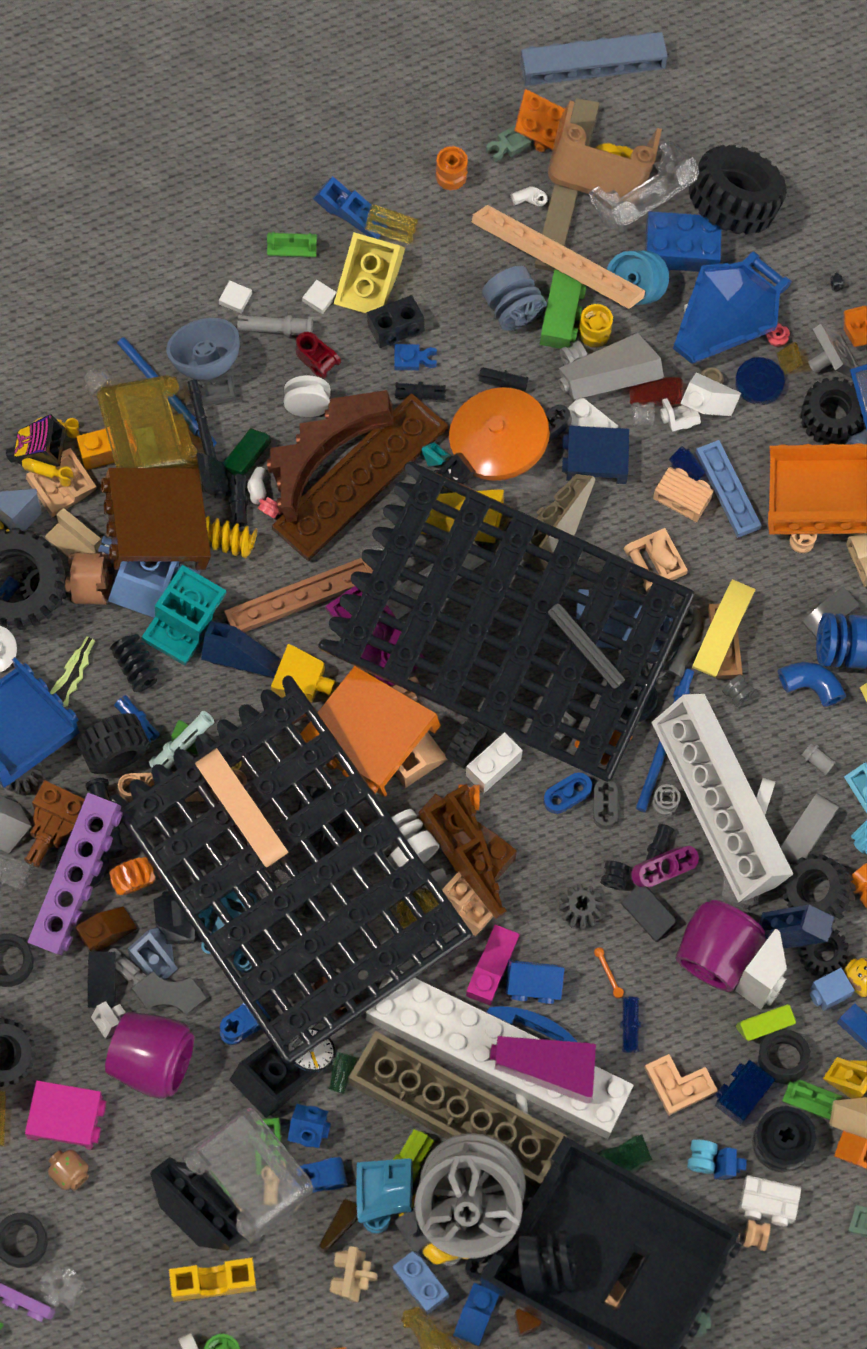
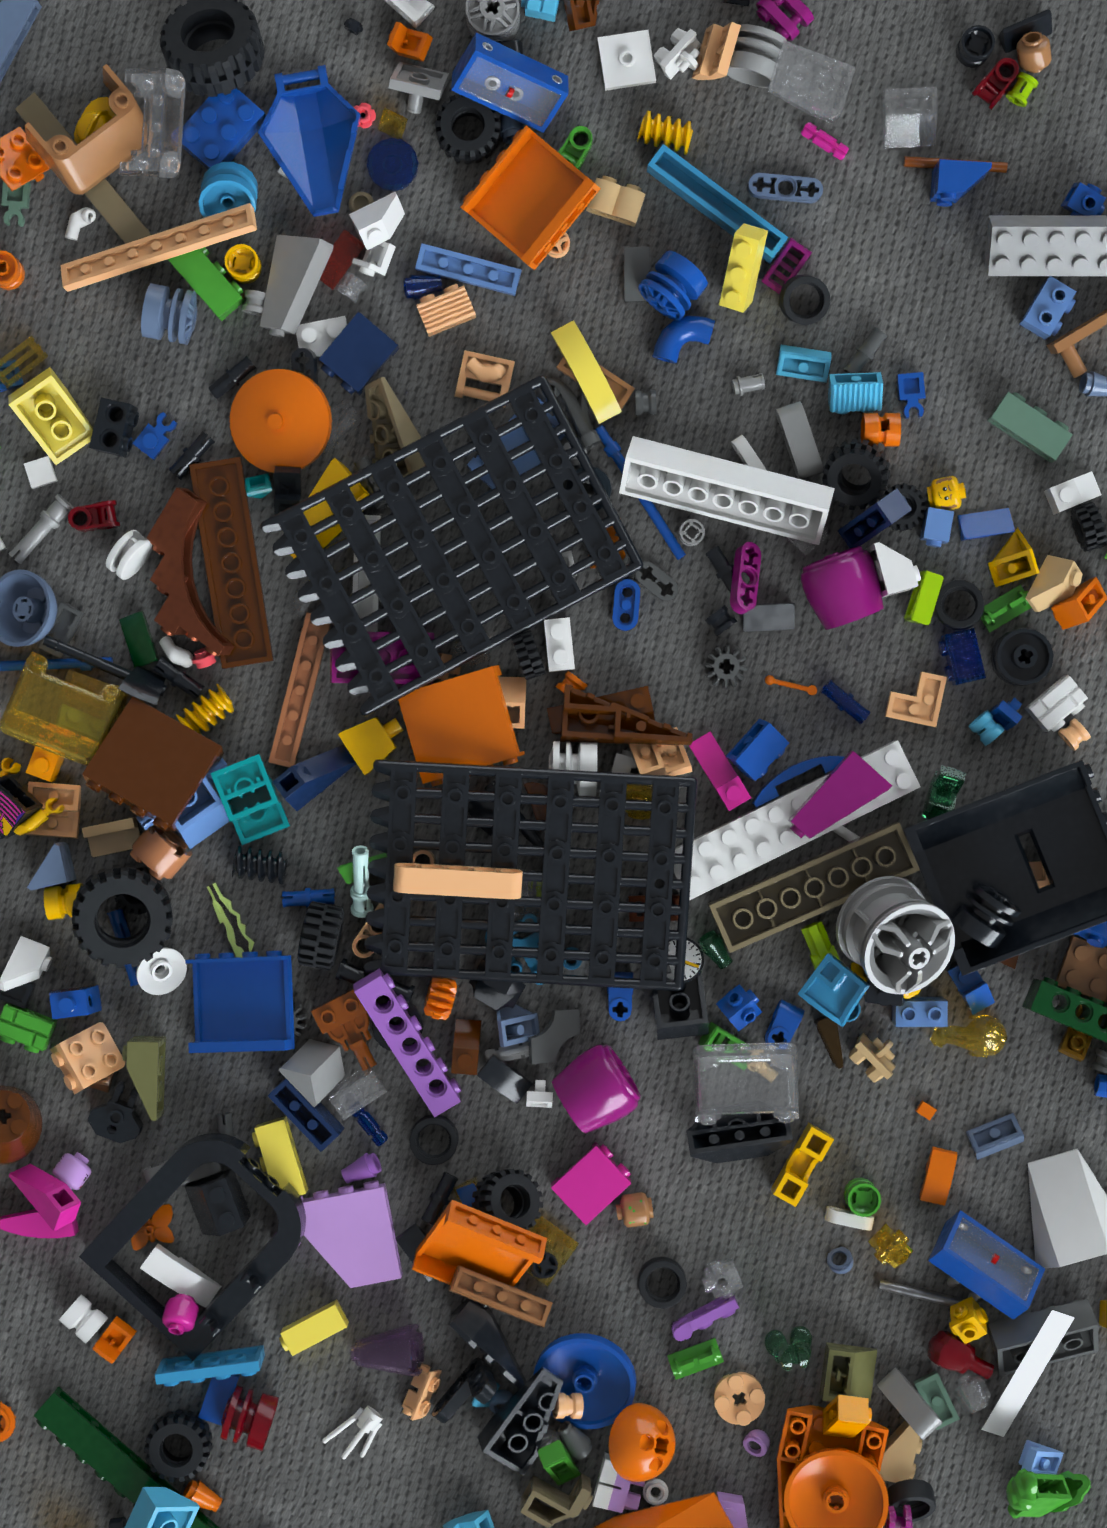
camera: 50 degrees left, 20 degrees up
(586, 646) = (525, 501): dark grey axle -> none

